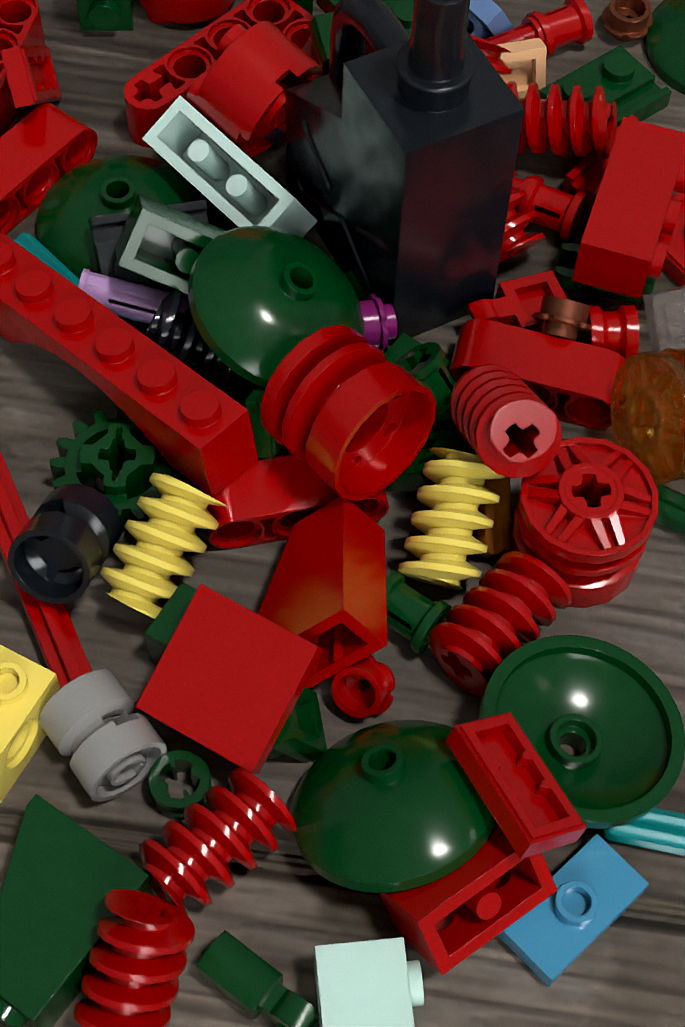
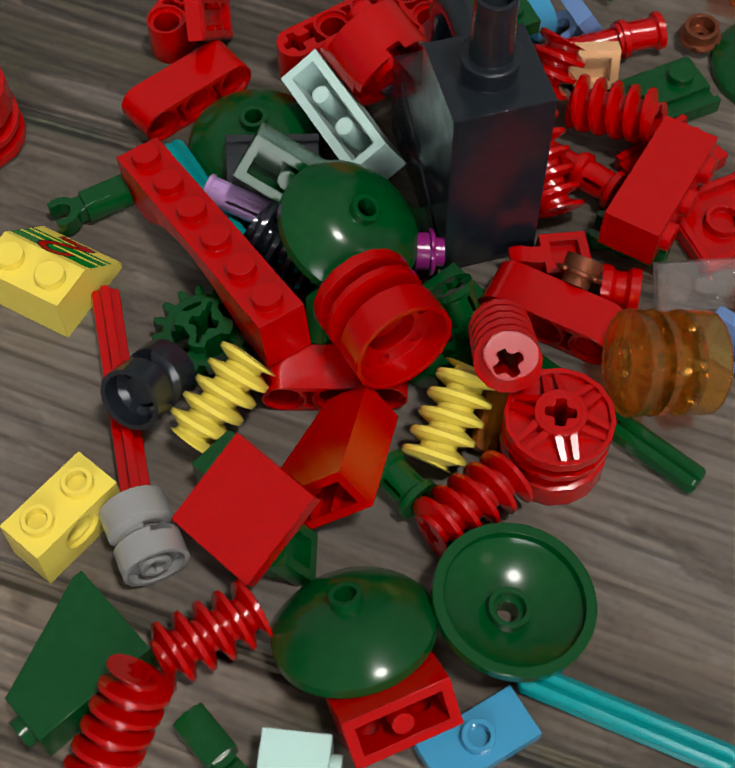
camera: 15 degrees right, 0 degrees up
(170, 765) = (192, 568): dark green bush -> none
(354, 697) = (346, 542): red plate -> none
(515, 785) = (443, 633): red plate -> none

